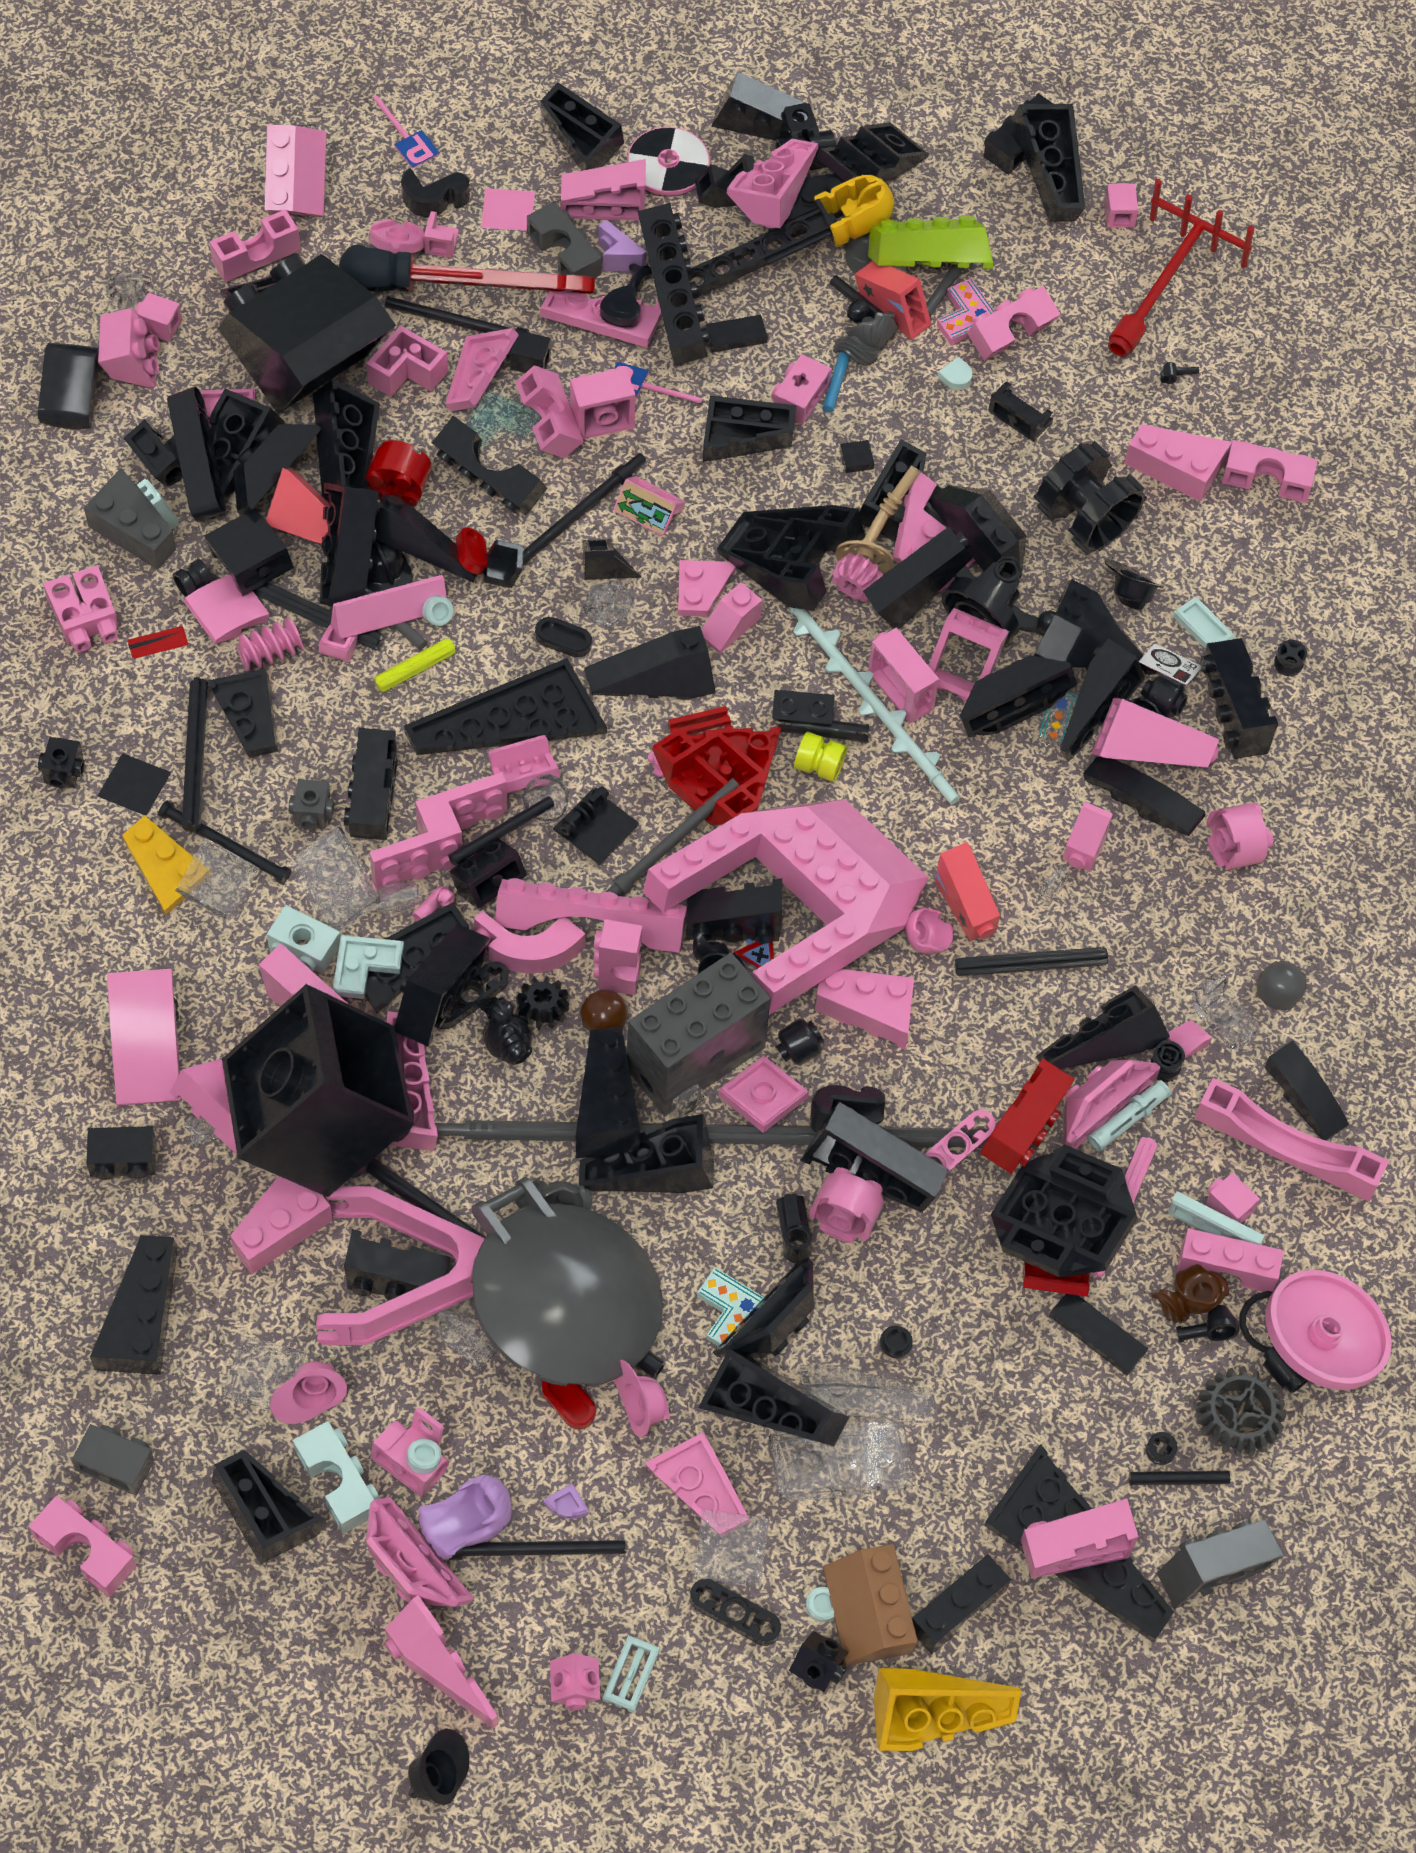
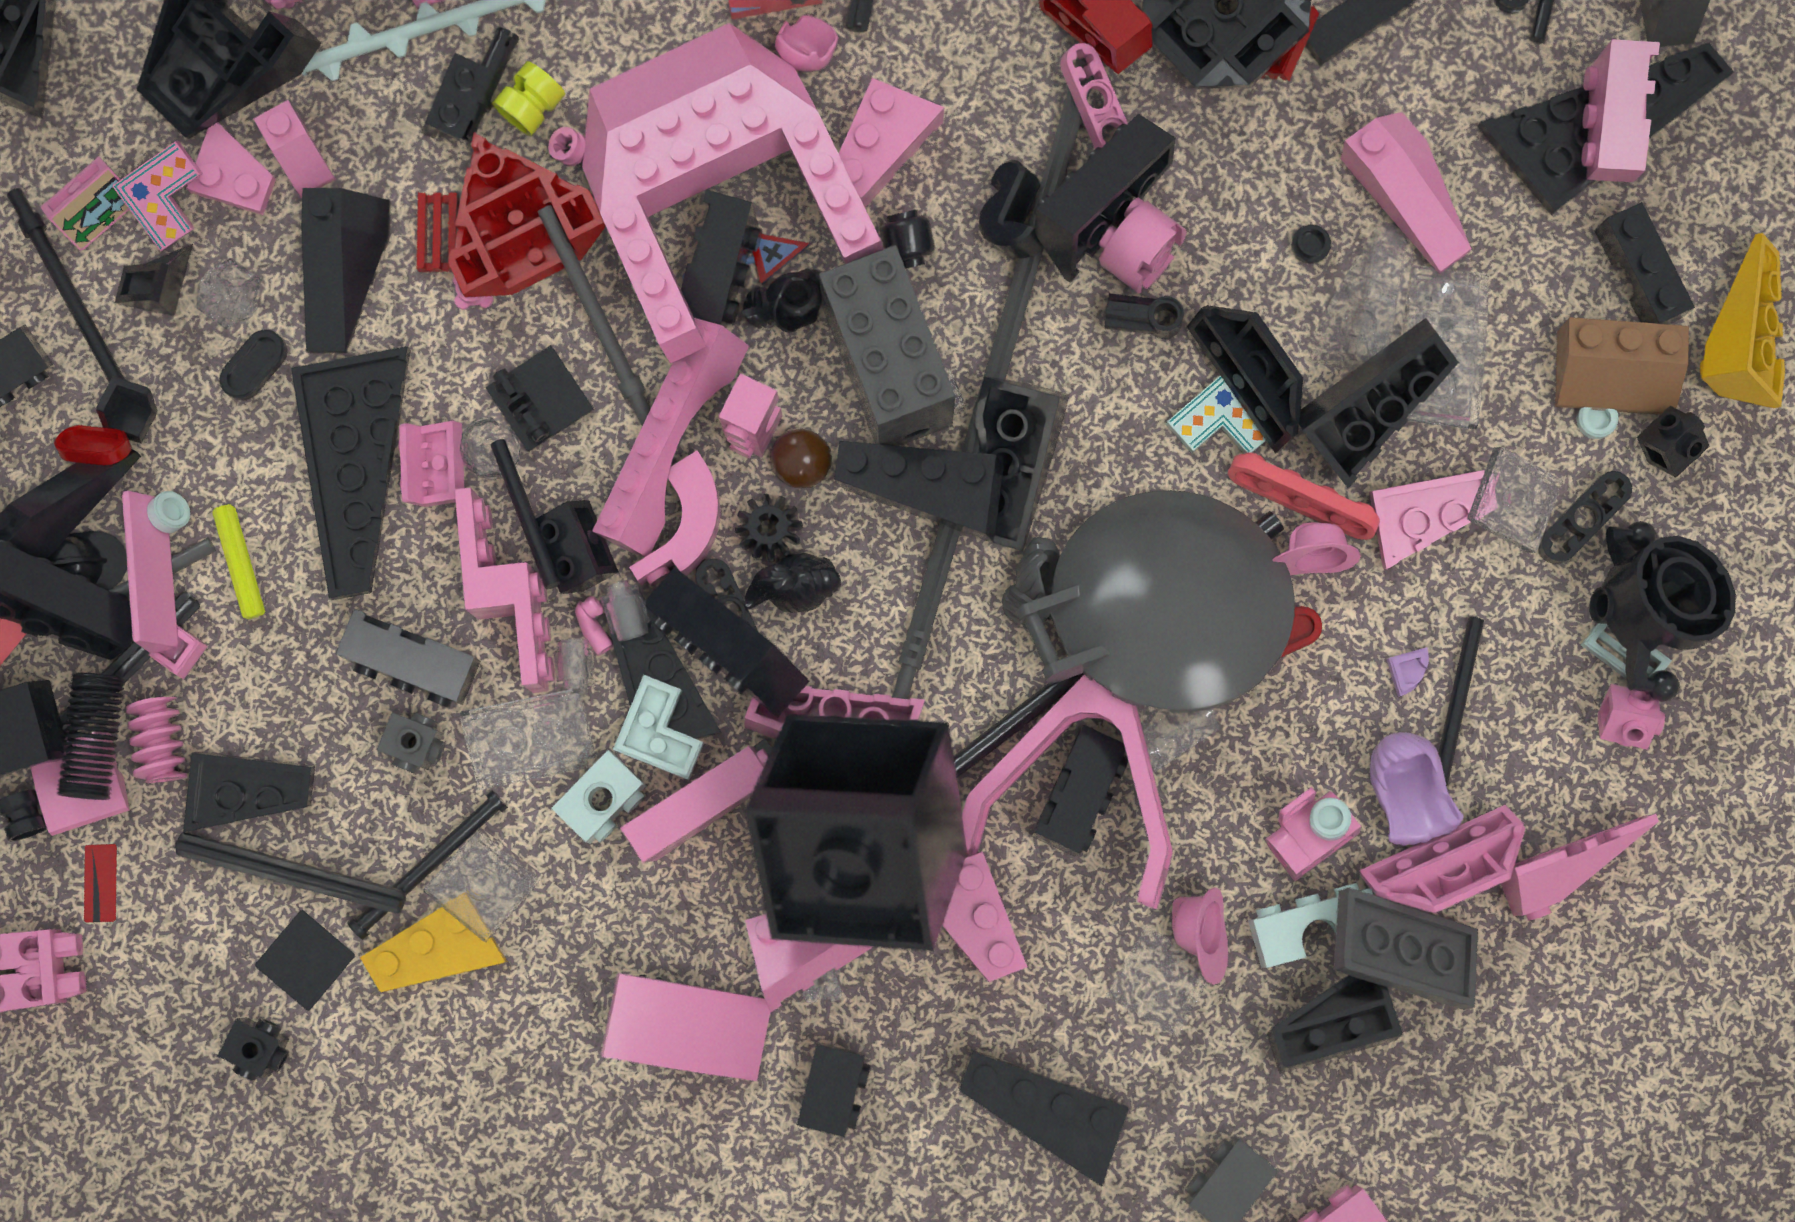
camera: 70 degrees left, 20 degrees up
(295, 584) = (97, 685): none -> black piece
(333, 1538) = (1406, 949): none -> dark grey plate
(440, 1768) = (1693, 896): black piece -> none
(446, 914) = (625, 611): none -> clear brick
(668, 536) = (149, 193): none -> bright pink tile
(687, 1371) = (1303, 496): none -> coral plate
(705, 1663) = (1661, 595): none -> black piece
(763, 1094) = (963, 301): bright pink tile -> none
(794, 793) = (558, 143): none -> bright pink bush
(976, 1394) = (1404, 179): none -> bright pink wedge

